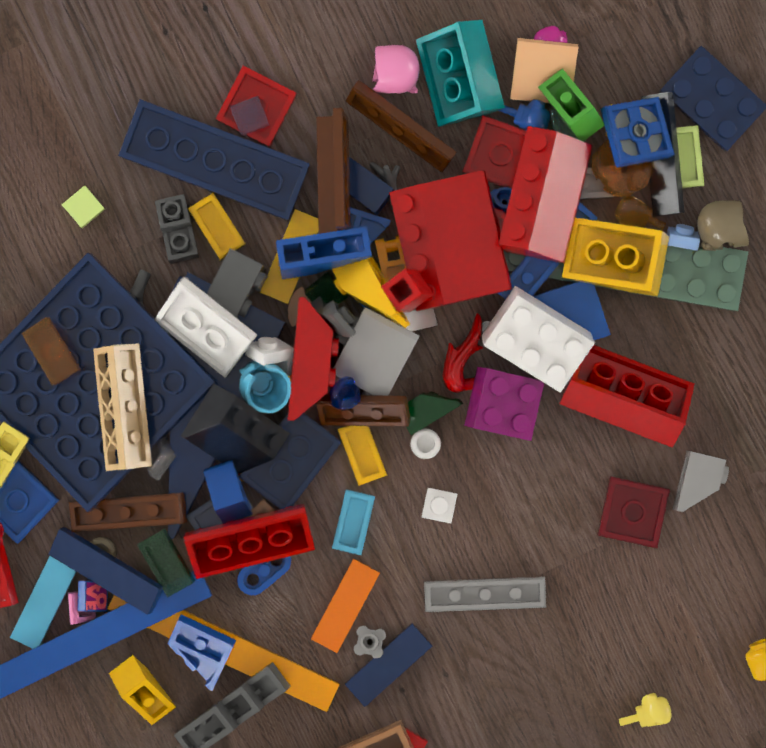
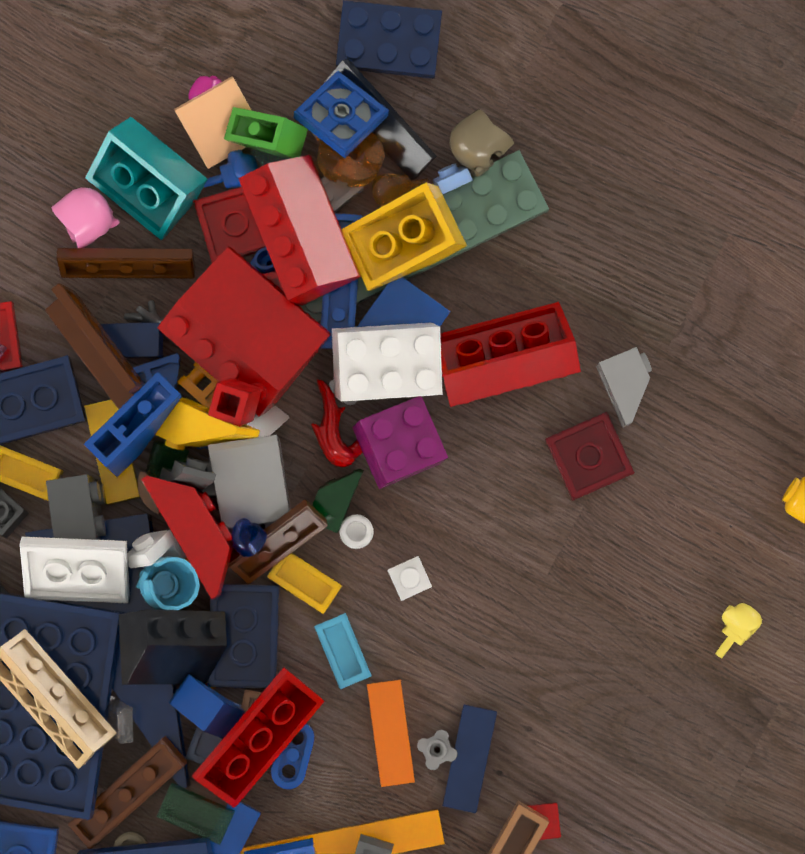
camera: 35 degrees left, 5 degrees down
(485, 594) = (510, 629): light grey tile -> none
(690, 156) = (406, 104): yellowish green tile -> none

